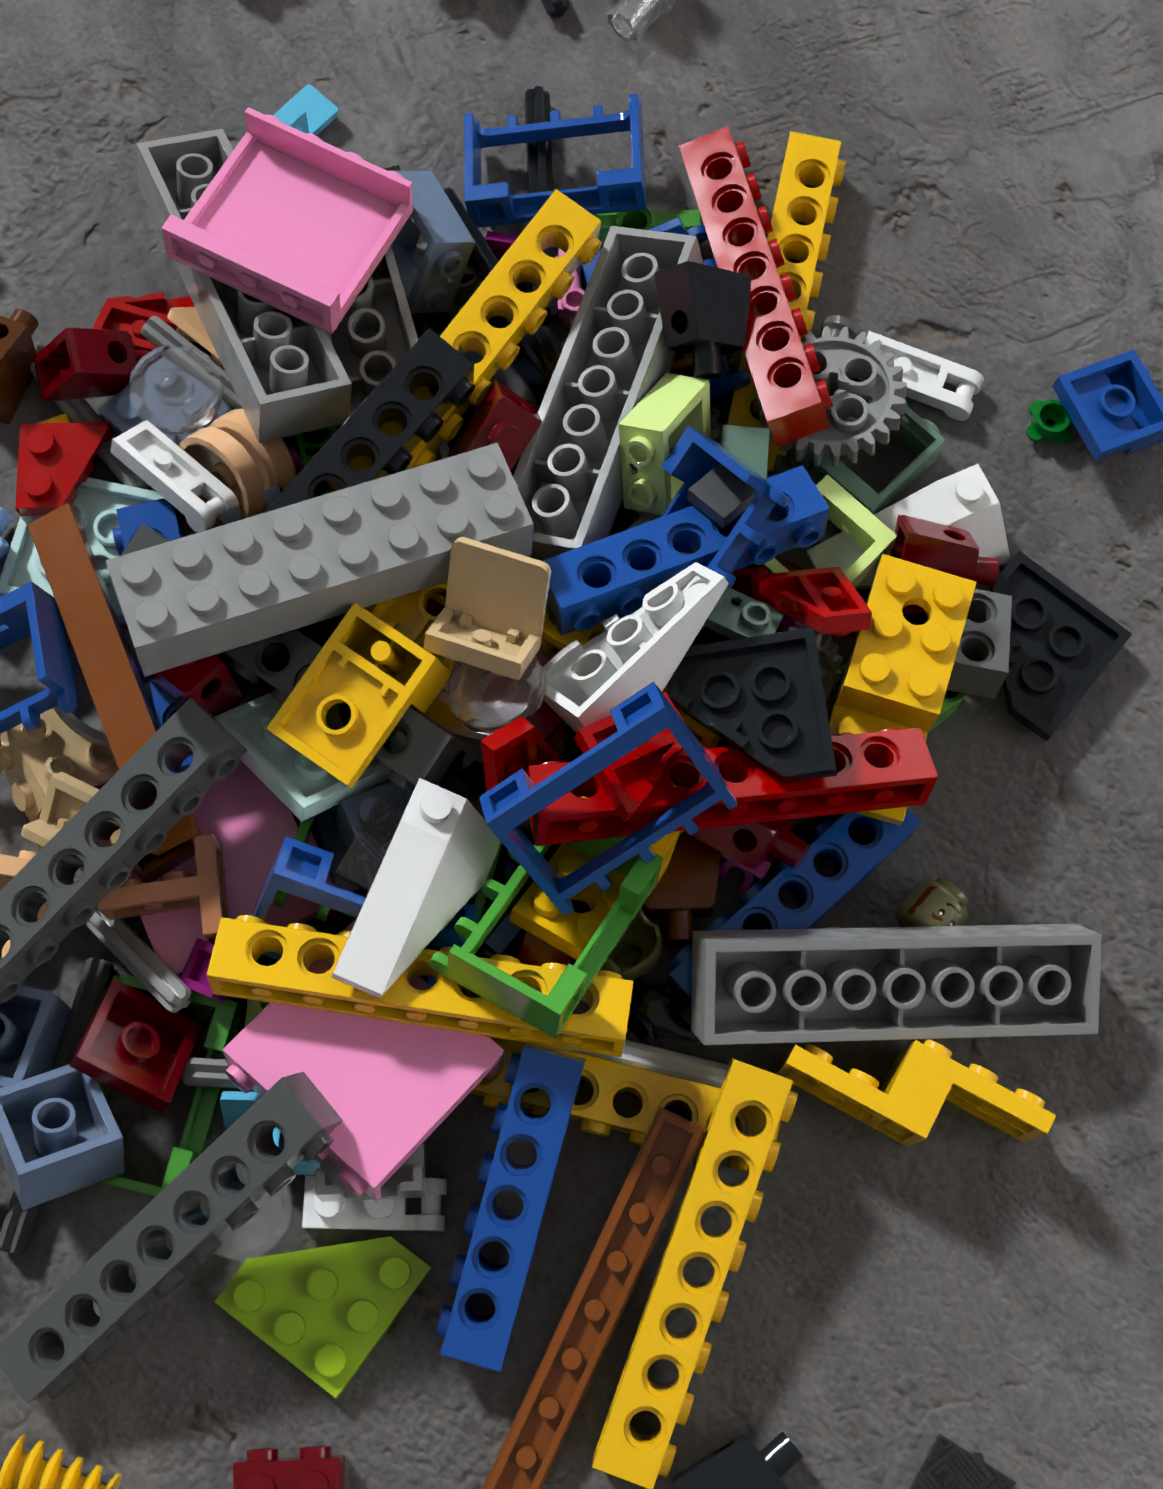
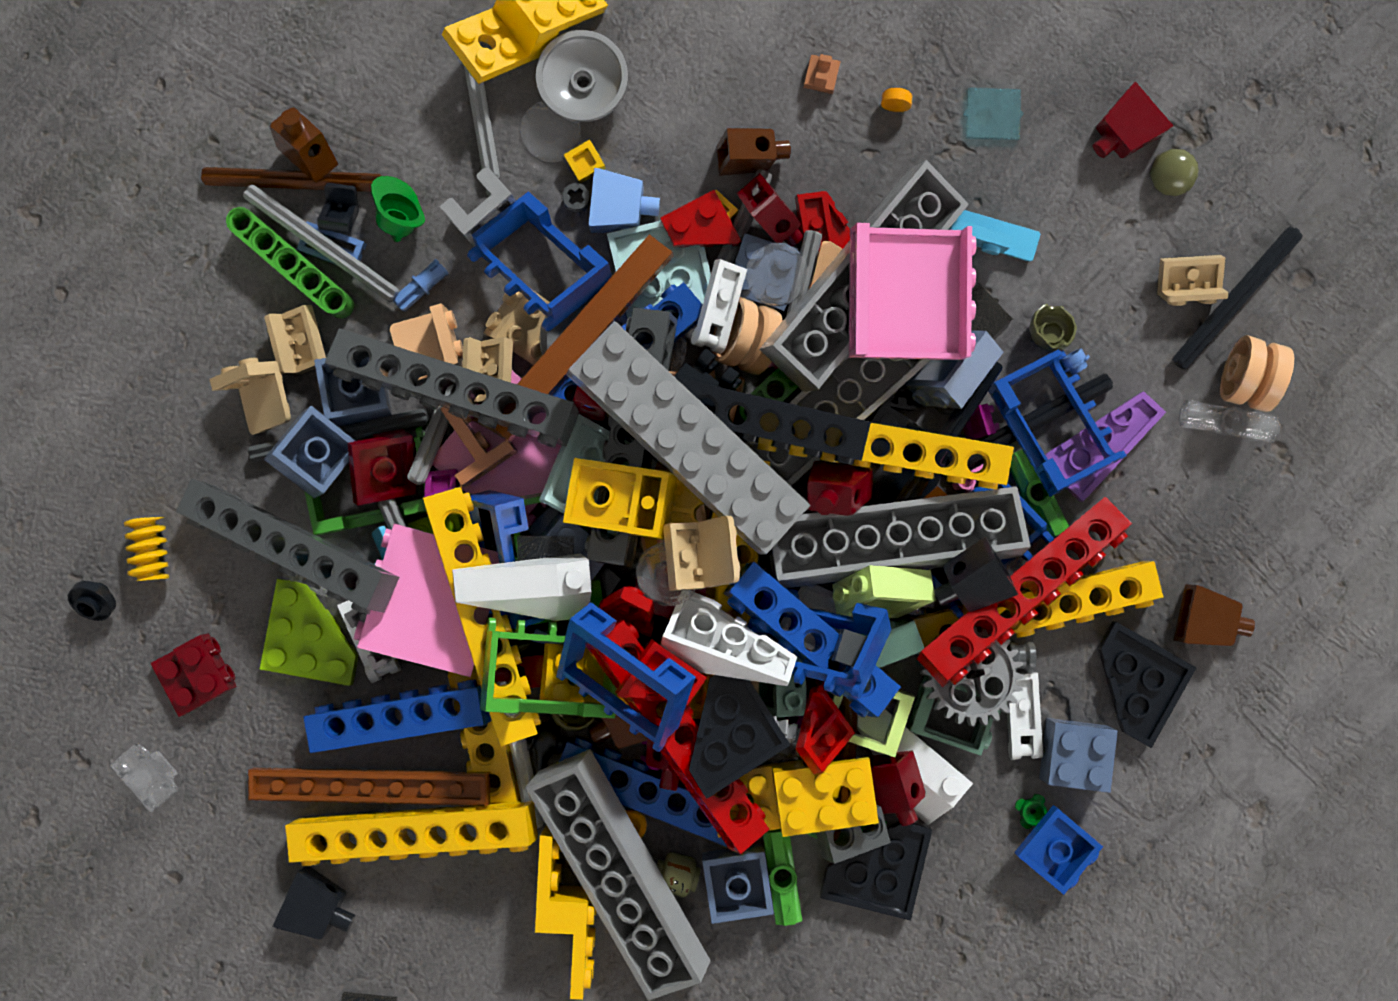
camera: 65 degrees right, 15 degrees up
(44, 168) = (896, 100): none -> light orange tile
(131, 75) = (993, 113): none -> clear light blue piece
(434, 121) = (1052, 328): none -> olive hair
(491, 114) = (1075, 361): none -> medium blue plate
(602, 82) = (1128, 426): none -> medium lavender wing
(893, 109) = (1210, 618): none -> reddish brown torso
(939, 220) = (1142, 681): none -> black plate
(981, 834) = (737, 884): none -> sand blue brick
(999, 329) = (1078, 755): none -> sand blue brick
(1025, 781) = (785, 893): none -> bright green piece

